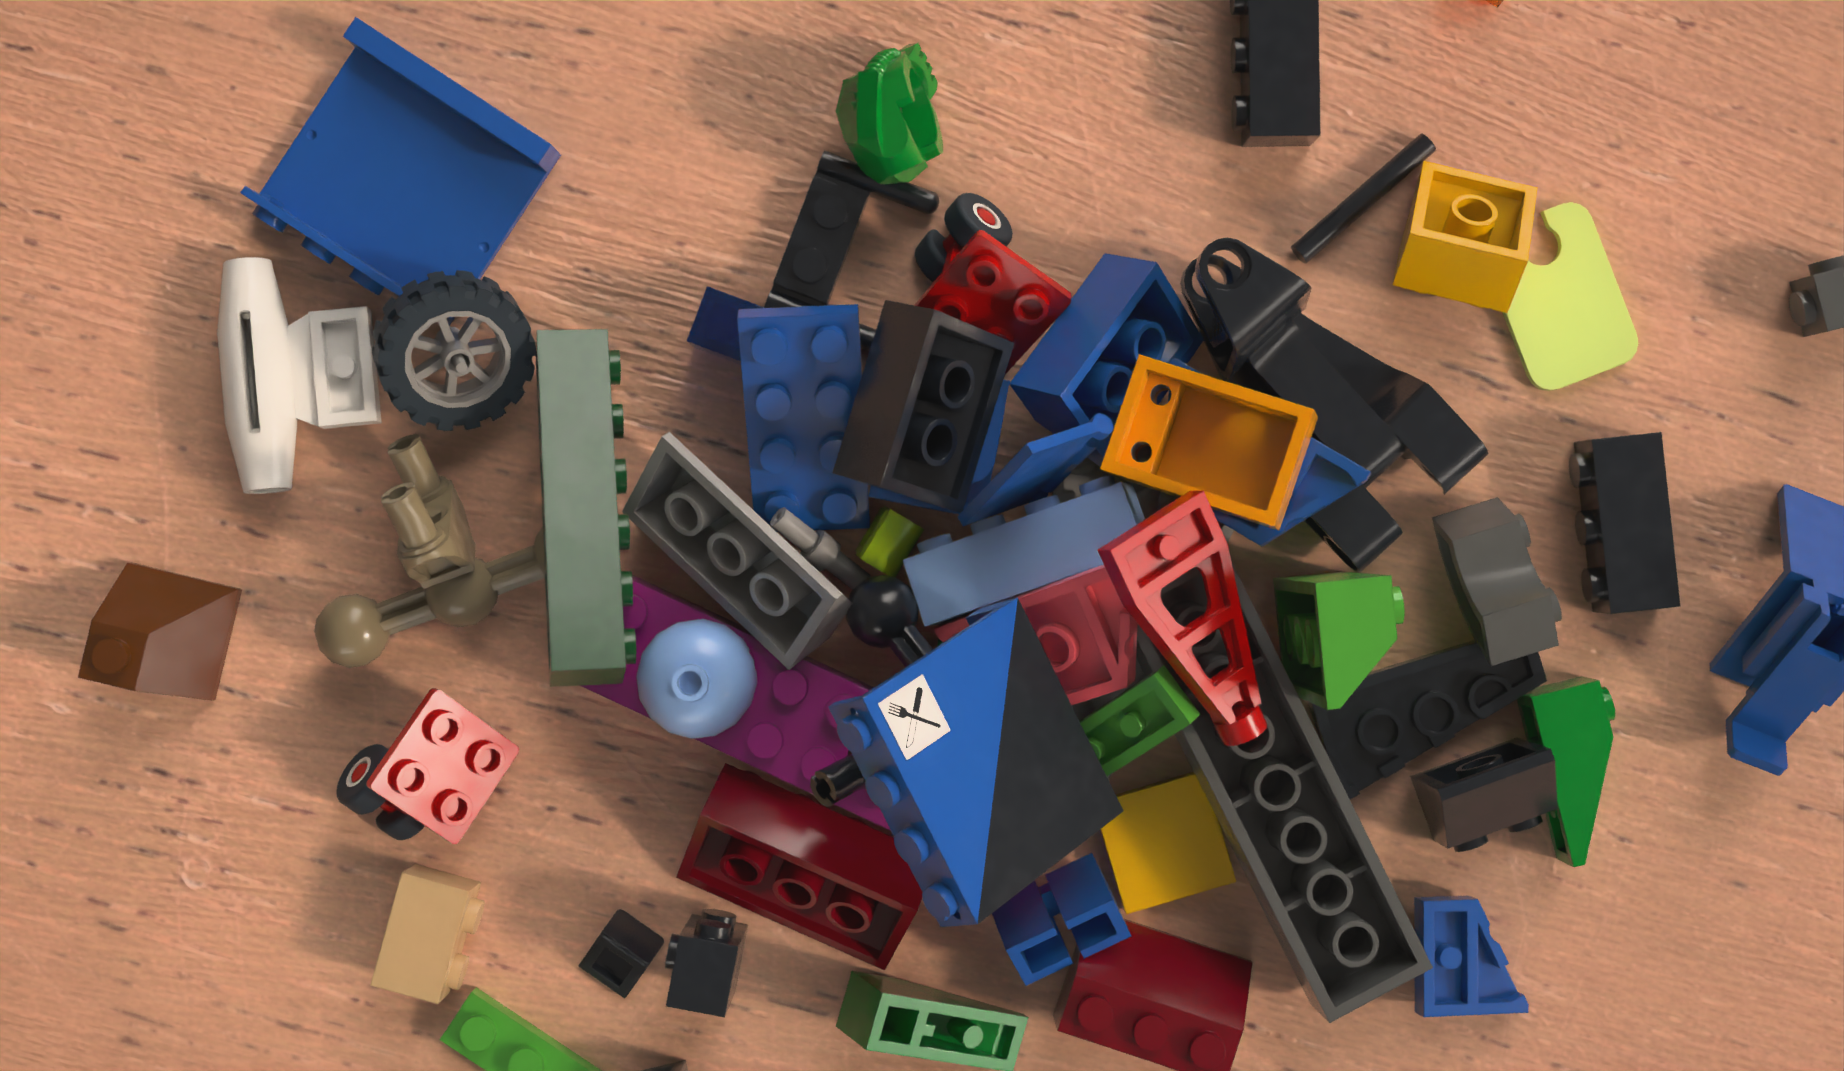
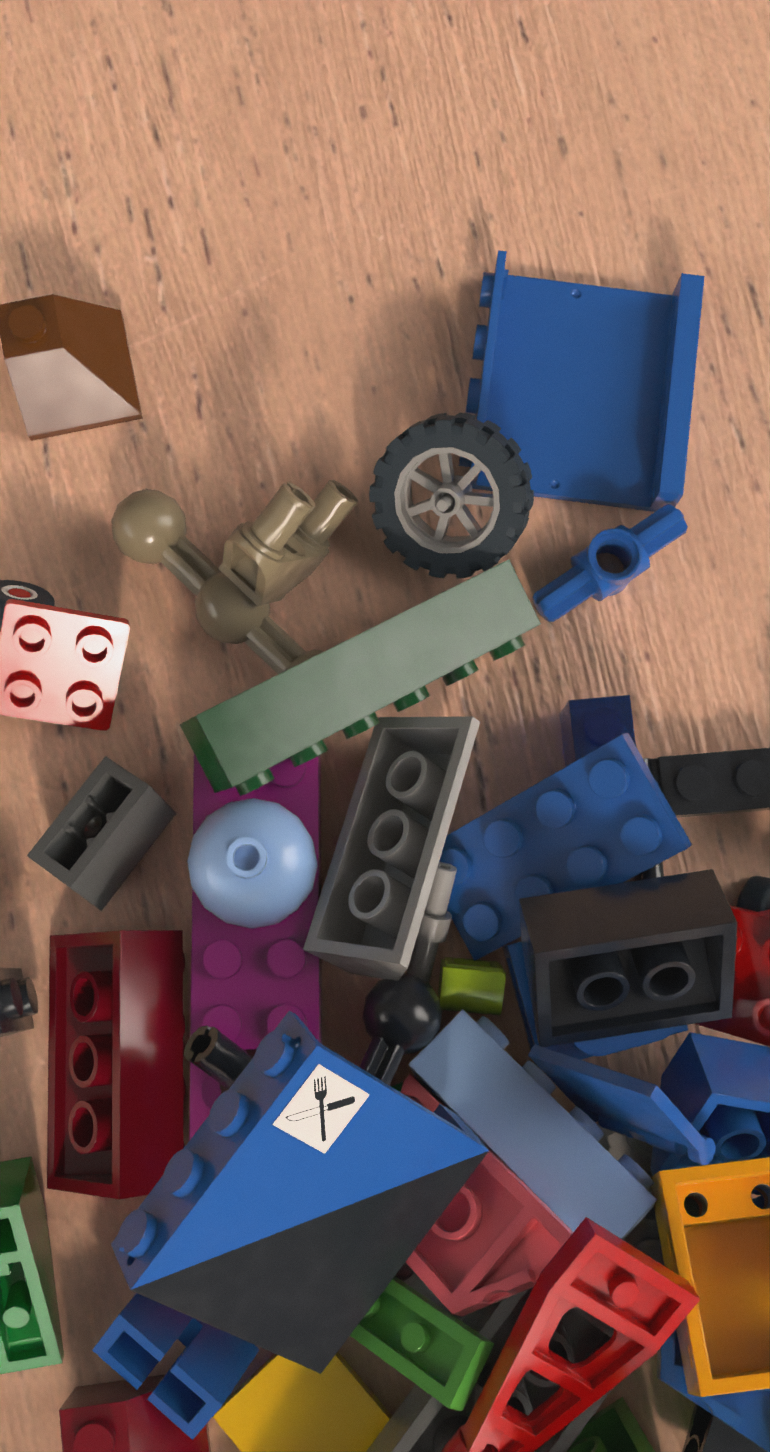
camera: 65 degrees right, 10 degrees down
(286, 372) = (356, 365): white plate -> none
(576, 208) = (632, 548): none -> blue axle
(610, 792) = (102, 833): none -> dark grey brick

